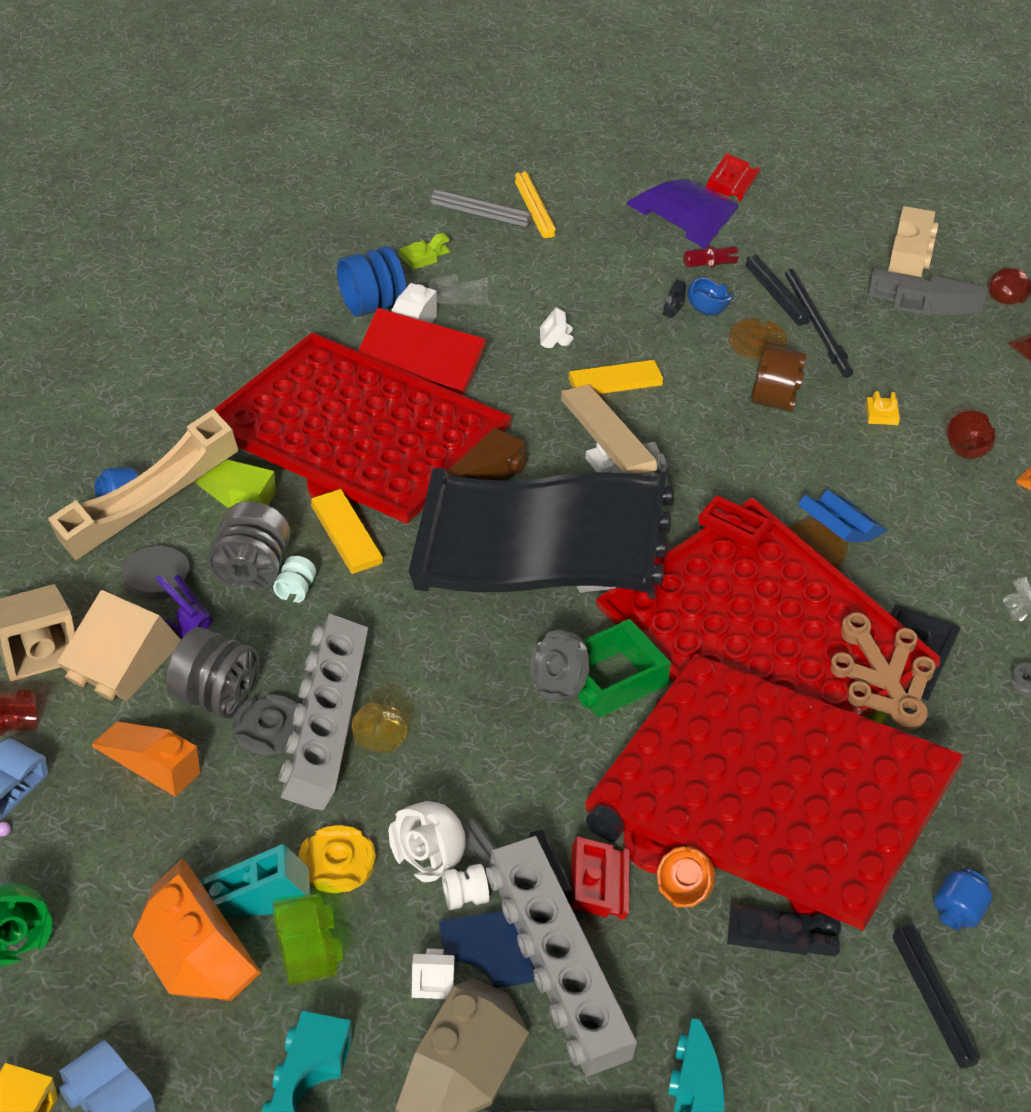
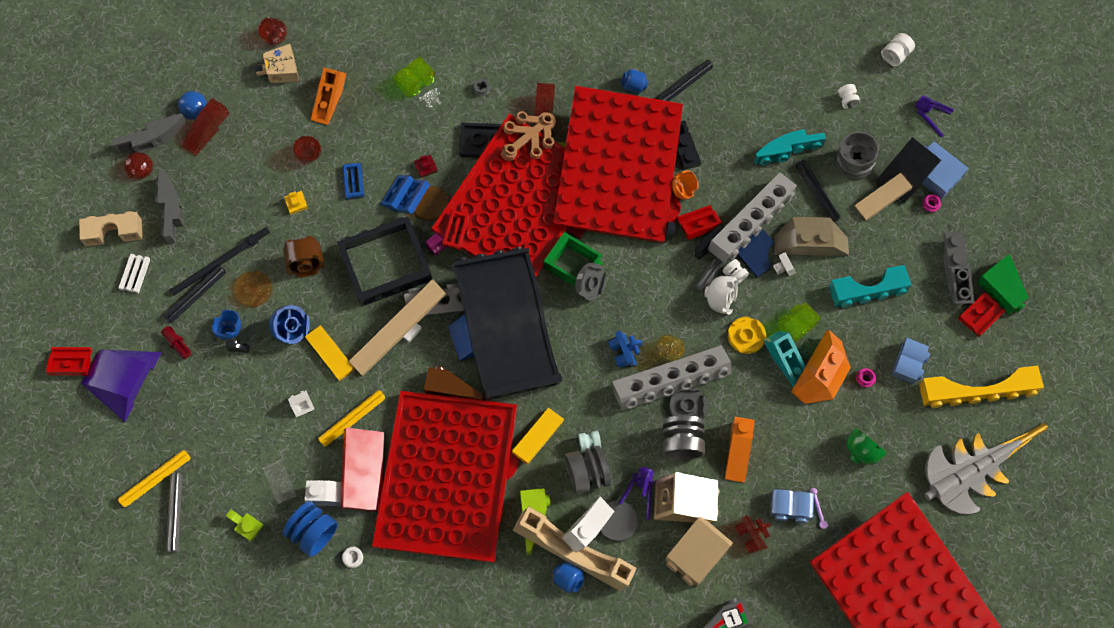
camera: 115 degrees left, 25 degrees up
(127, 994) = (867, 372): none -> dark pink plate
(166, 510) = (588, 525): none -> white slope
(313, 321) = (352, 557): none -> white tile
(416, 676) = (627, 357): none -> blue hips
(505, 372) = (351, 418): none -> yellow axle
(675, 337) = (289, 324): none -> blue cylinder
(696, 497) = (393, 287): none -> black window
(836, 251) = (132, 258): none -> white tile
(889, 561) = (425, 166): none -> dark red tile
(896, 480) = (355, 194): none -> blue tile
(958, 734) = (544, 99): none -> clear red slope

